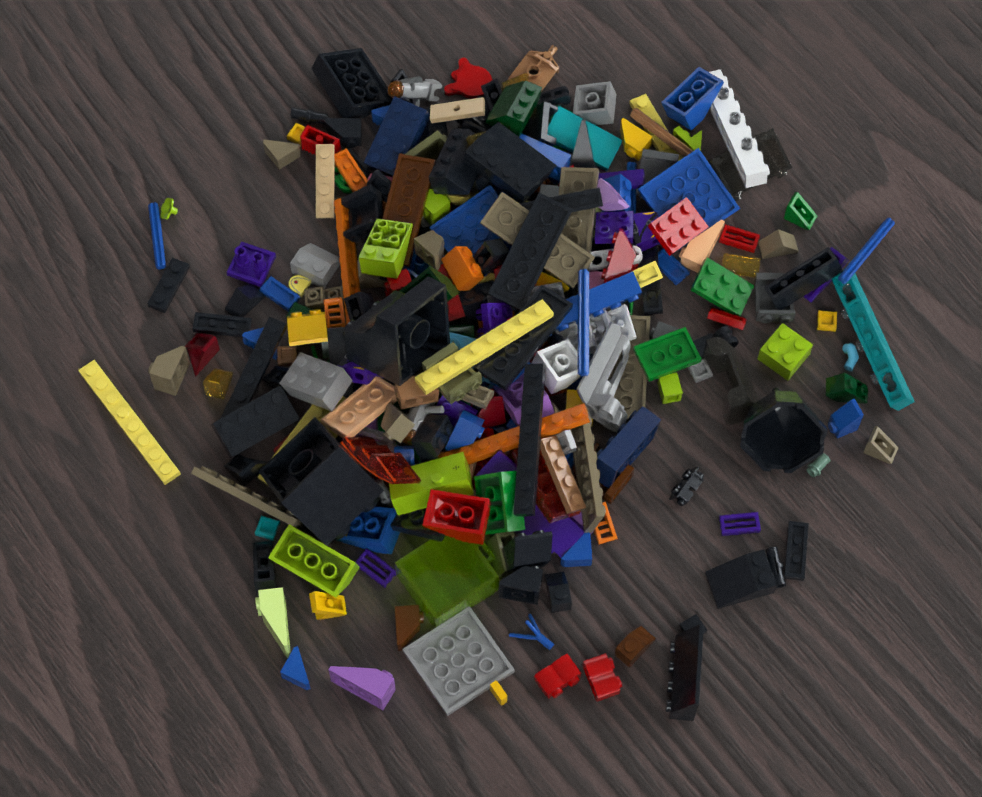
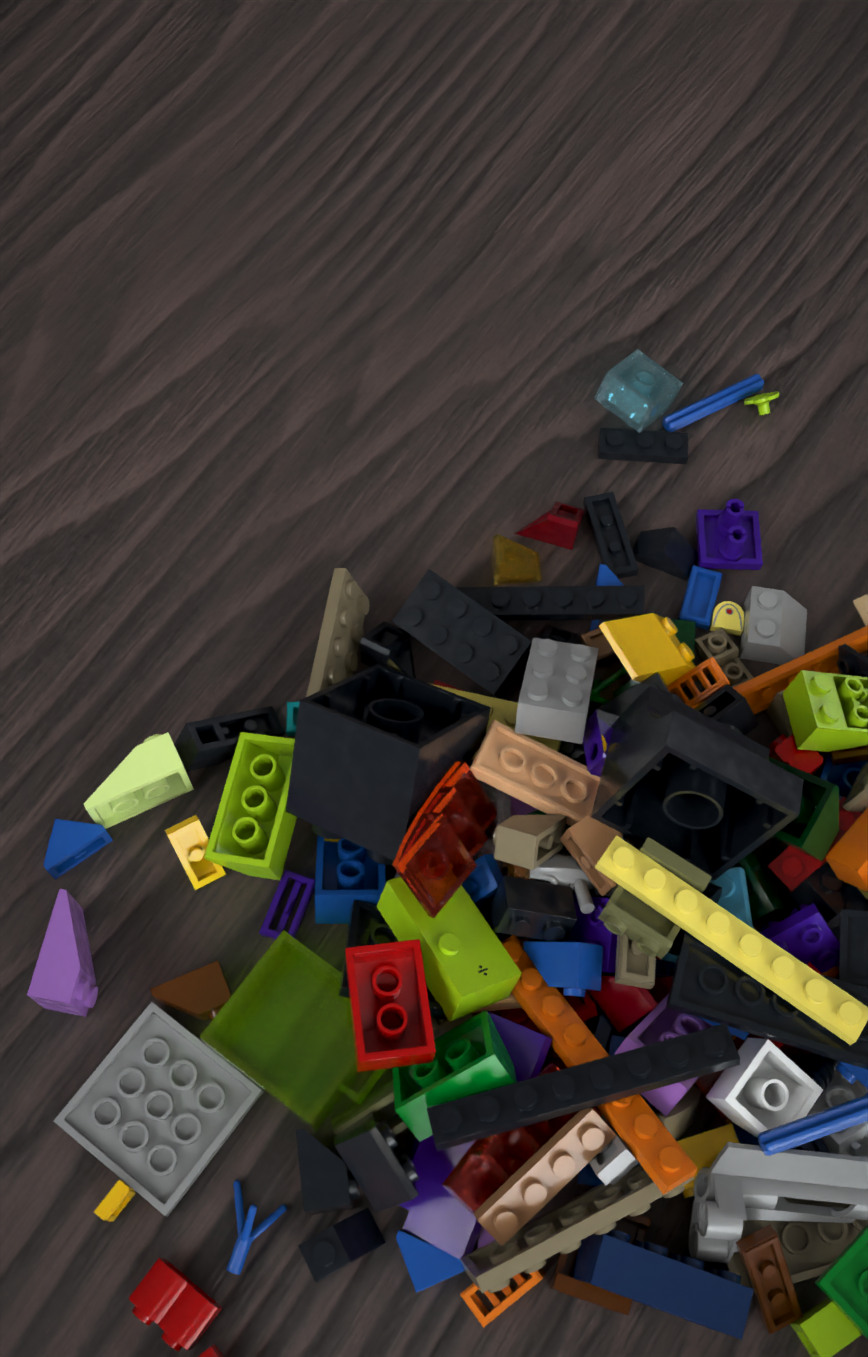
camera: 70 degrees right, 0 degrees up
(129, 422) = (404, 475): light yellow plate -> none
(136, 271) = (638, 390): none -> clear light blue brick
(169, 370) = (502, 489): dark tan slope -> none
(637, 398) = (769, 1279): none -> reddish brown tile

